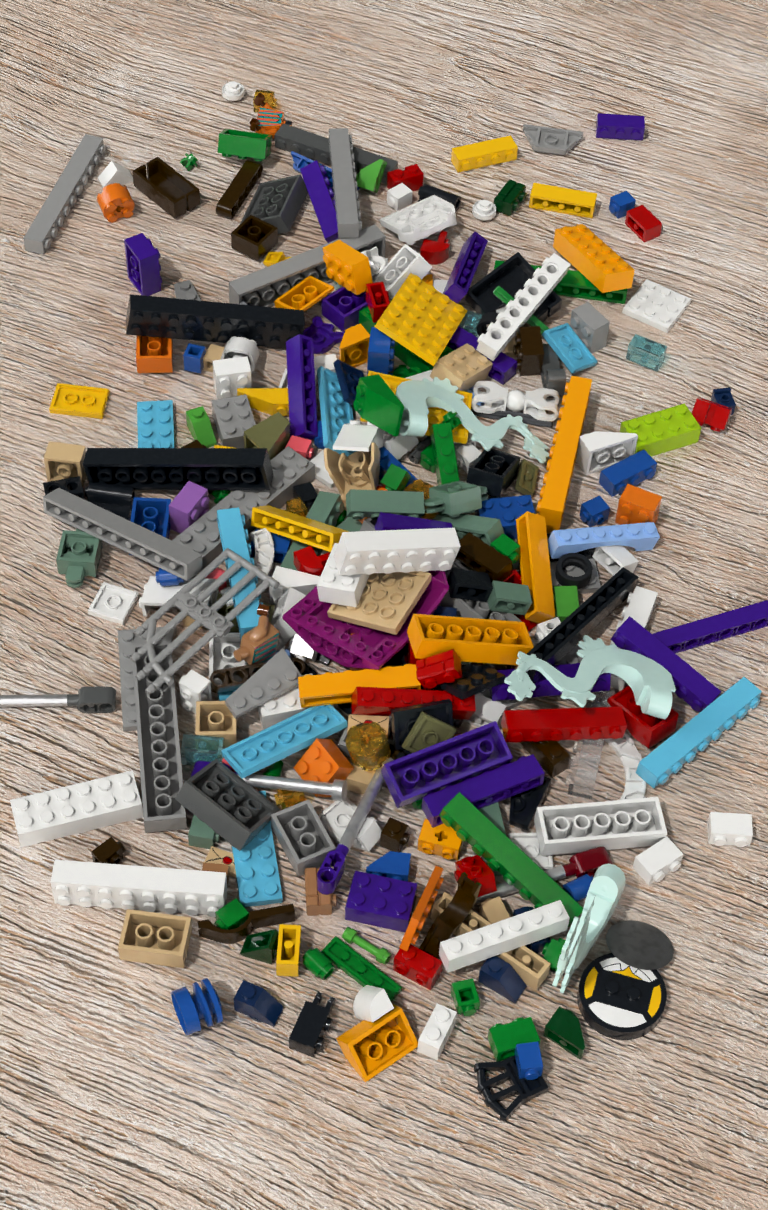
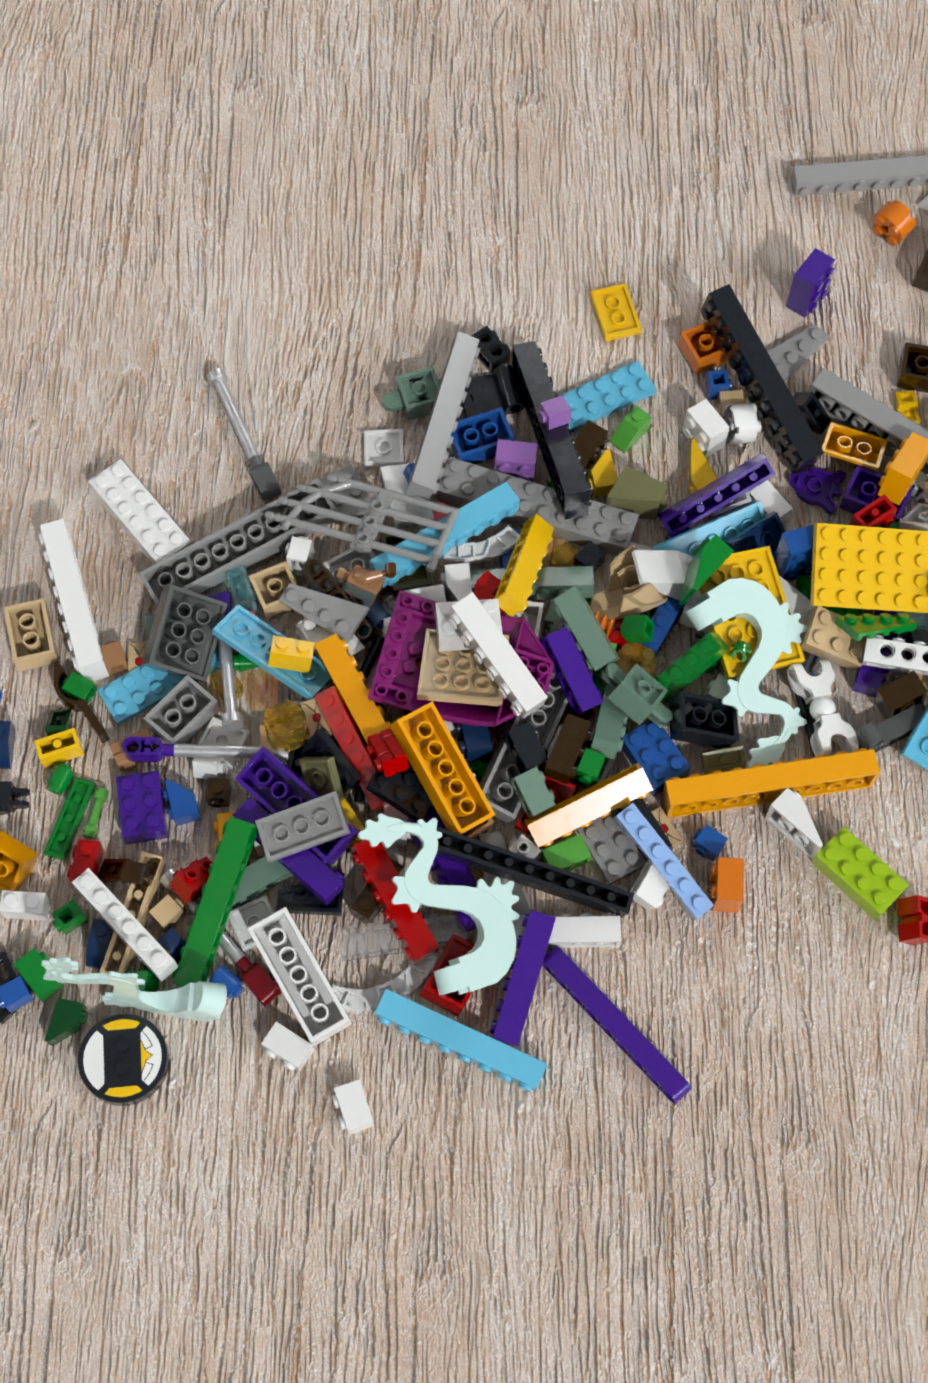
camera: 70 degrees right, 15 degrees up
(64, 461) = (519, 326): tan brick -> none
(108, 852) = (104, 562): dark brown brick -> none
(178, 447) = (555, 412): none -> medium lavender brick
(231, 419) = (654, 453): light grey brick -> none
(299, 718) = (291, 654): none -> yellow brick
(301, 446) = (649, 528): coral brick -> none
(323, 763) = (260, 695): orange brick -> none
(354, 346) = (807, 514): light orange slope -> none
(371, 1003) = (27, 838): white brick -> none
(422, 909) = (139, 842): orange plate -> none
(470, 335) = (870, 625): none -> green wing
(476, 758) = (302, 826): none -> light grey plate
(573, 559) = (614, 831): black tyre -> none
(628, 471) = (782, 859): blue brick -> none
(639, 945) = (183, 1058): flat silver sticker -> none

